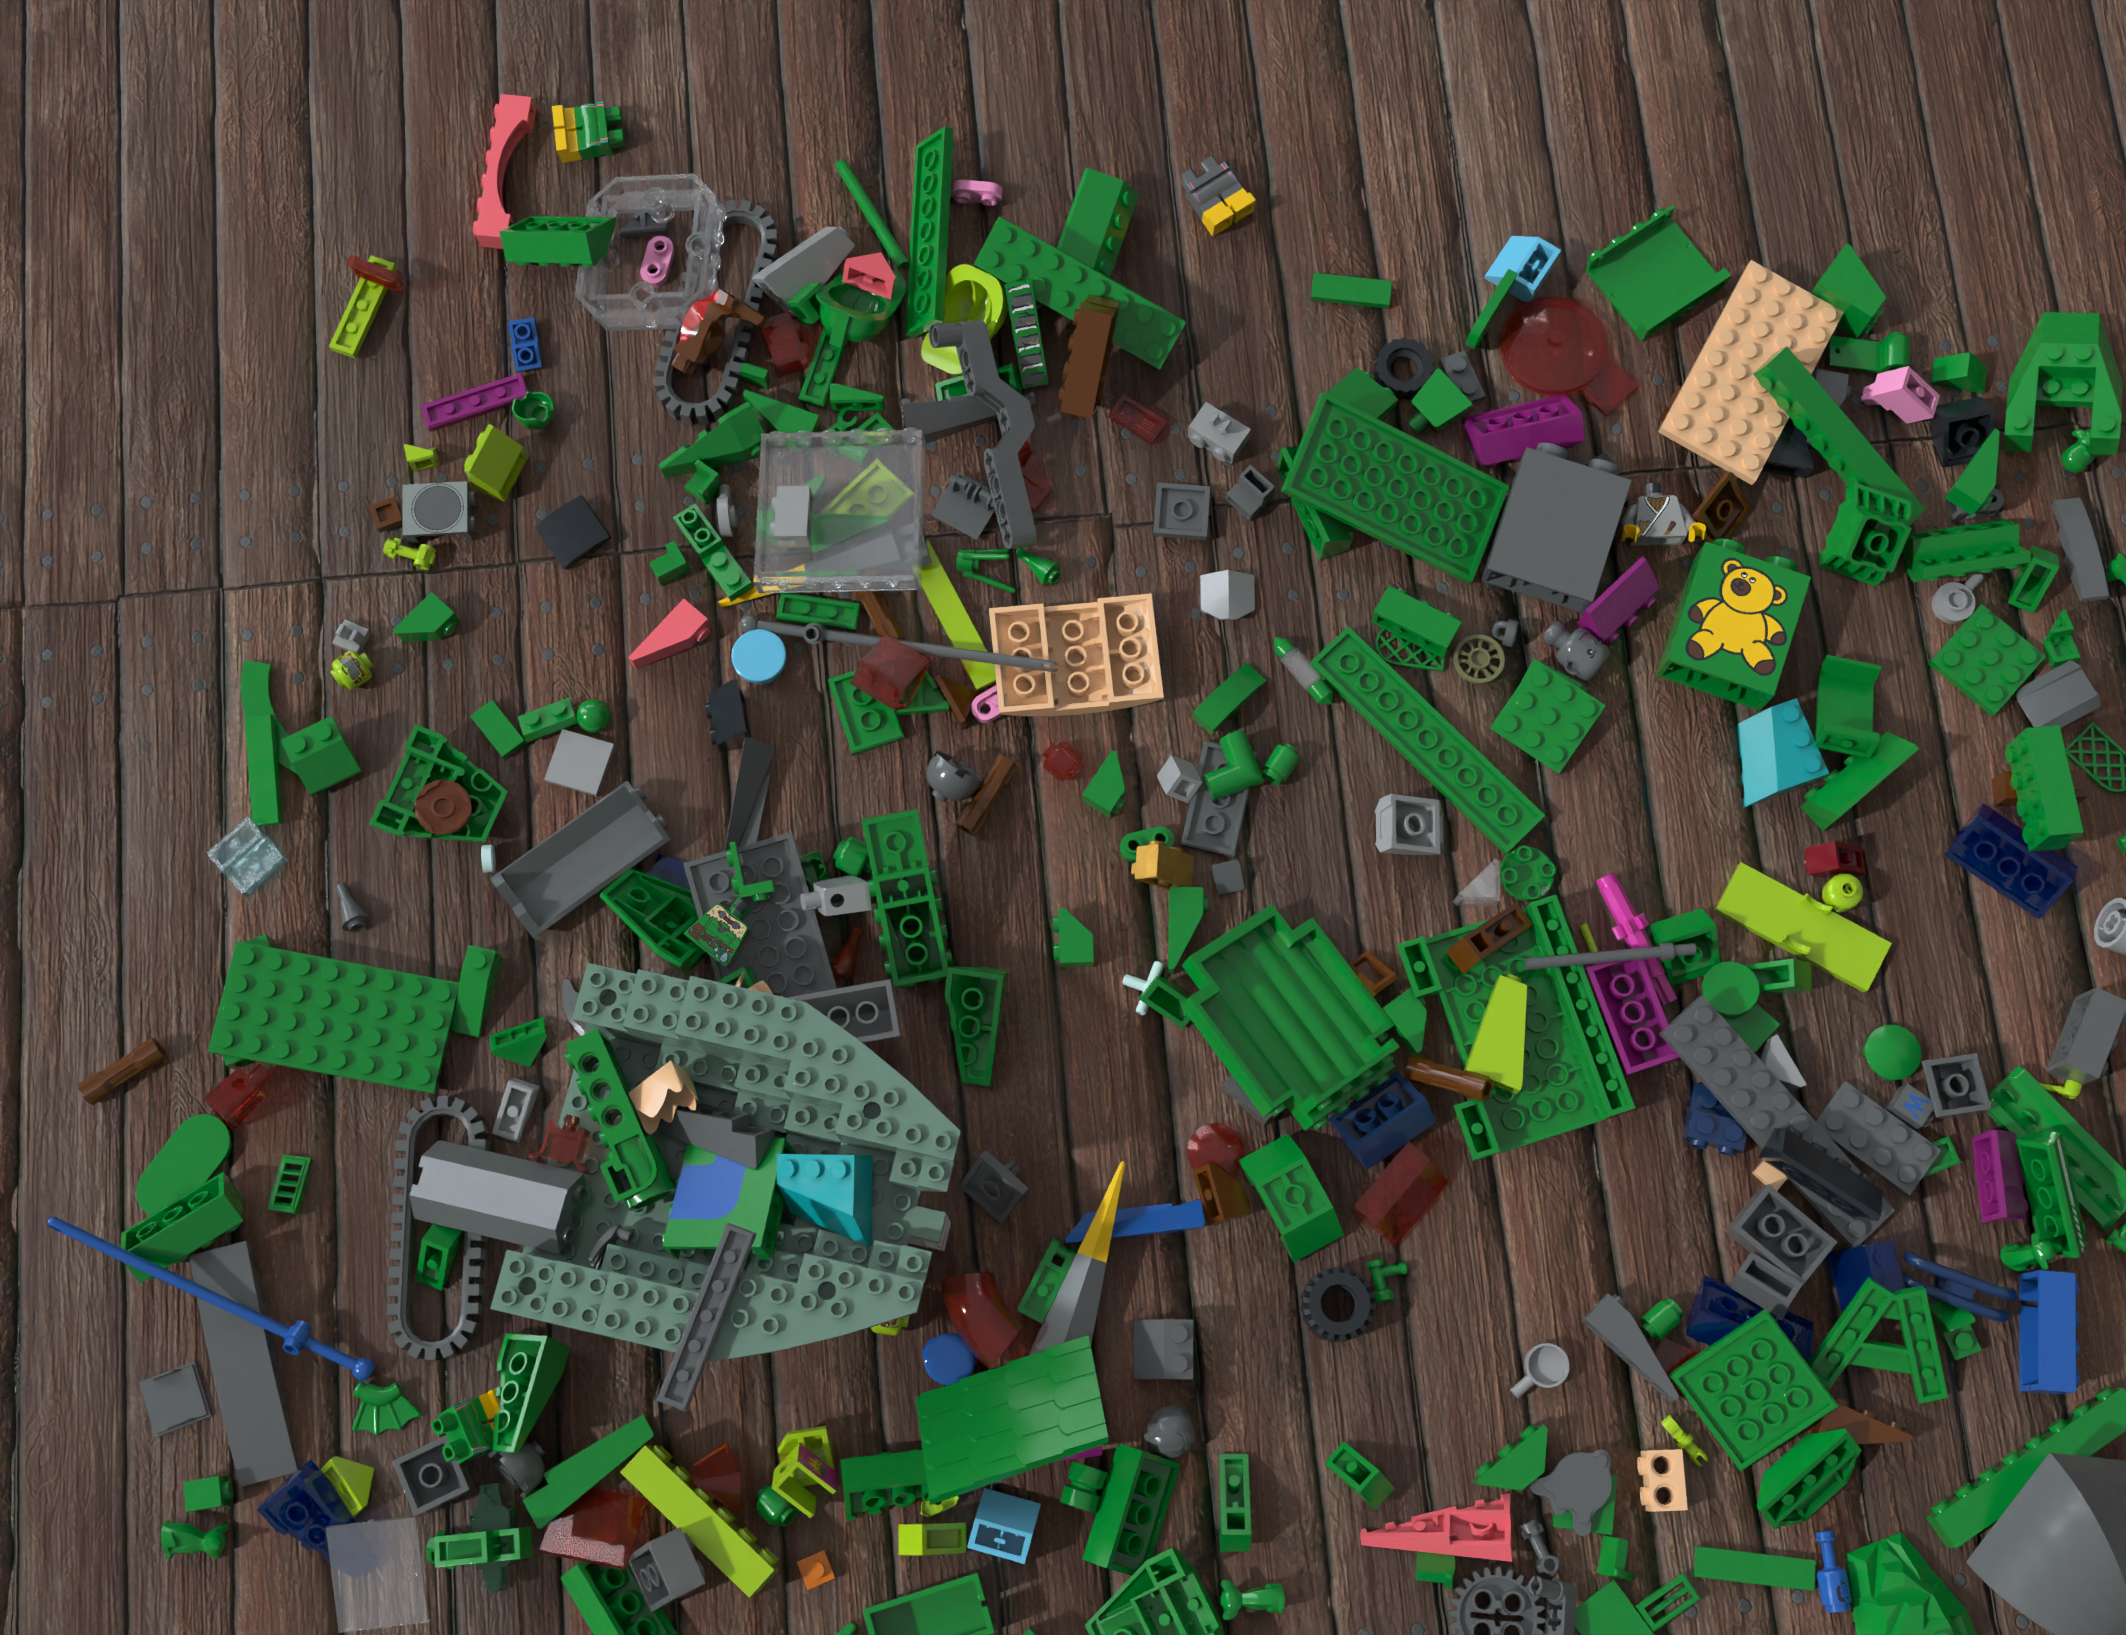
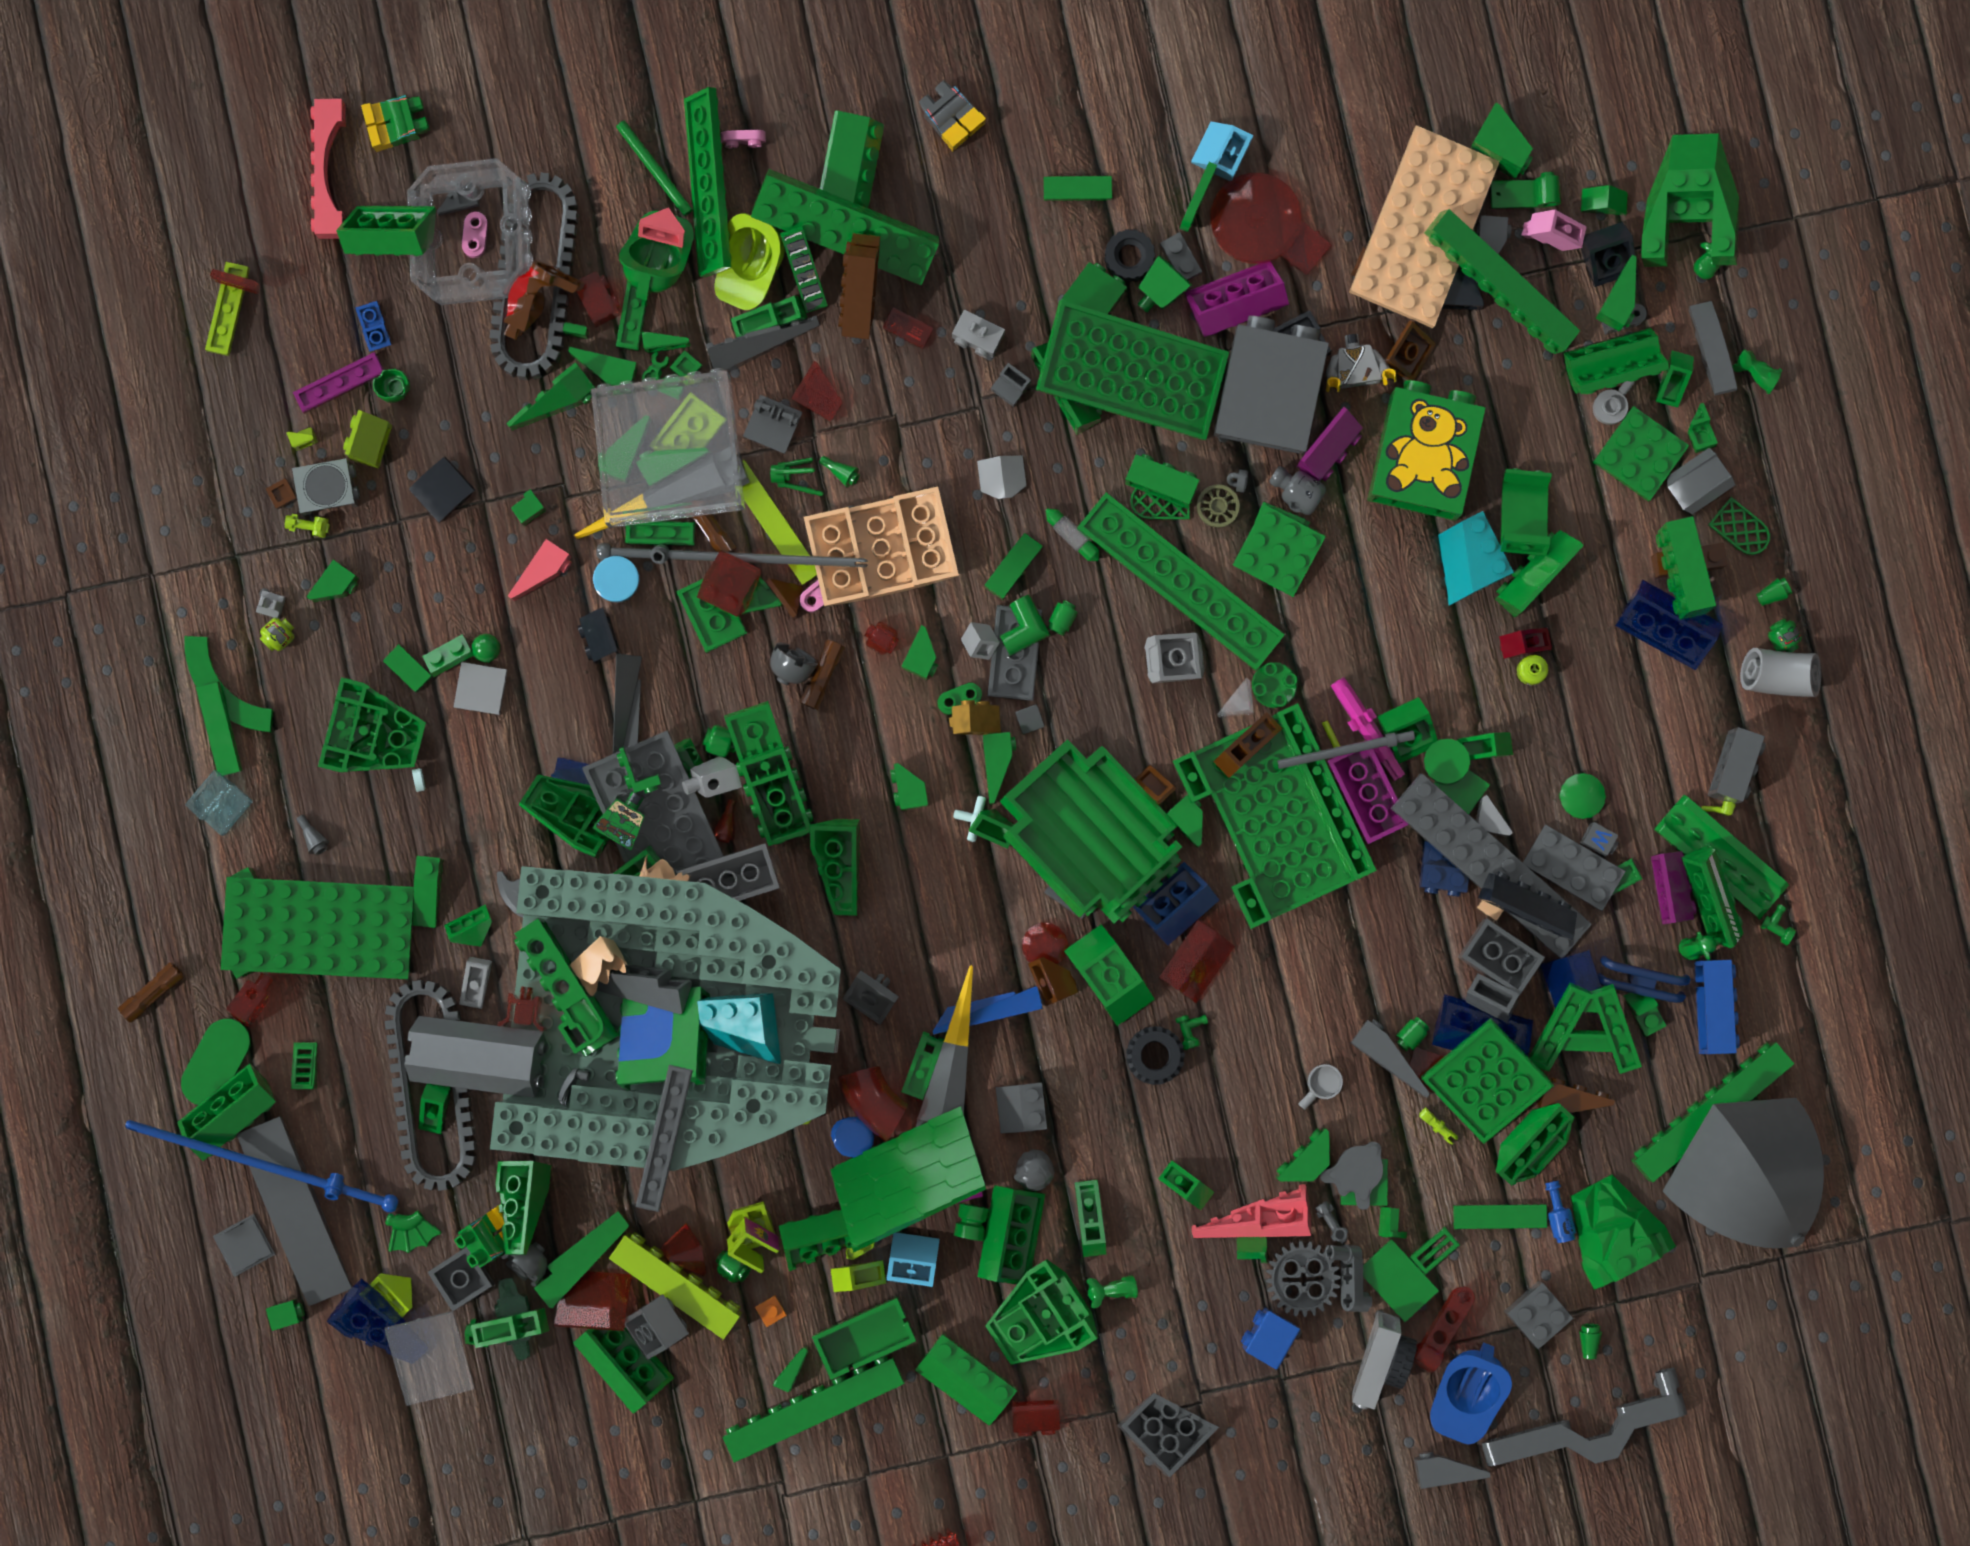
camera: 10 degrees left, 10 degrees up
(185, 1538) = (276, 1351): green animal -> none
(321, 755) = (266, 712): green slope -> none
(443, 807) = (376, 744): copper tile -> none
(581, 858) = (496, 770): dark grey panel -> none
(703, 483) = (546, 433): green panel -> none
(713, 552) = (564, 494): green slope -> none
(726, 513) = (570, 458): light grey piece -> none
(793, 516) = (629, 462): light grey brick -> none
(805, 304) = (609, 262): green panel -> none
(807, 263) = (605, 229): light grey slope -> none
(1015, 422) = (805, 351): dark grey beam -> none
(1181, 511) = (954, 407): dark grey plate -> none
(1466, 1083) = (1228, 865): reddish brown axle -> none
(1501, 1036) = (1264, 827): lime slope -> none
(1654, 274) = (1337, 141): green panel -> none
(1671, 1479) = (1429, 1157): light nougat brick -> none
(1803, 927) = (1503, 701): lime piece -> none
(1867, 535) = (1532, 360): green slope -> none
(1956, 1086) = (1632, 820): dark grey slope -> none

